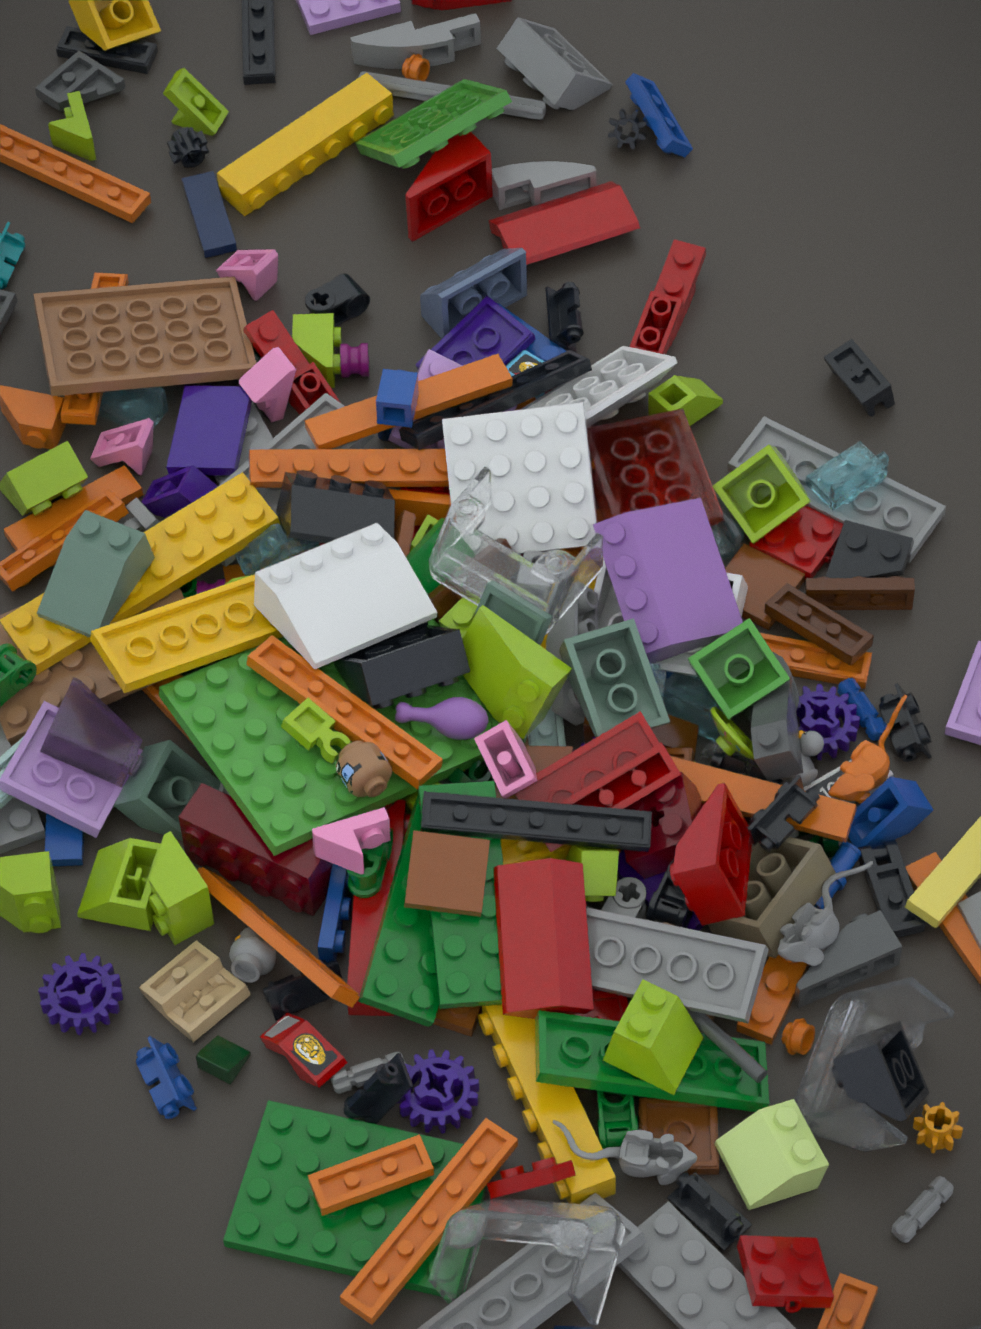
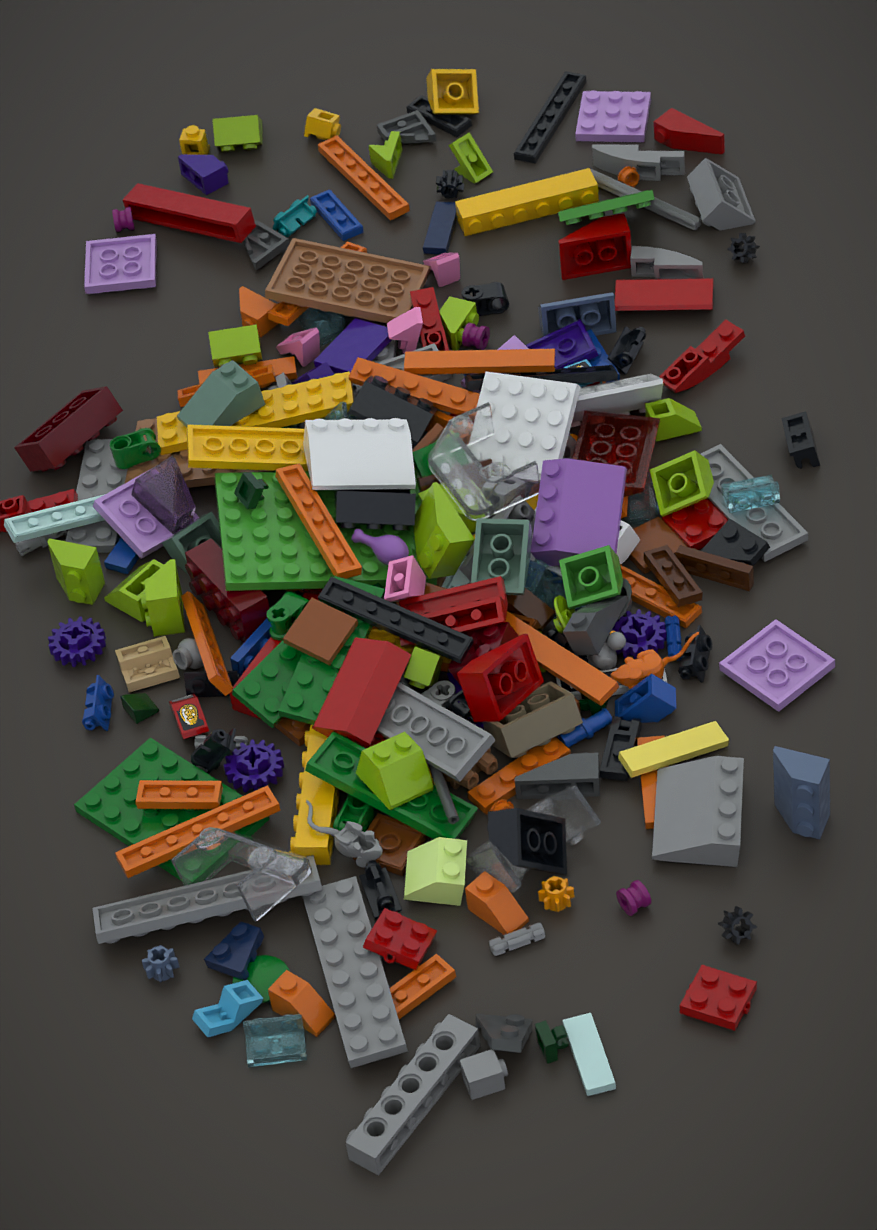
camera: 30 degrees right, 10 degrees down
(54, 236) = (336, 215): none -> blue tile
(233, 699) = (250, 490): none -> dark green tile
(314, 727) = (291, 522): lime plate -> none
(344, 839) = (272, 592): bright pink slope -> none
(363, 769) = (307, 556): medium nougat head -> none
(397, 398) = (467, 352): blue brick -> none
(516, 611) = (461, 497): sand green tile -> none
(543, 1173) = (275, 829): red plate -> none
(658, 115) = (771, 246): blue plate -> none
(770, 825) = (551, 673): black hinge -> none
(813, 927) = (543, 746): light grey animal -> none
(872, 1173) = (495, 904): none -> orange slope

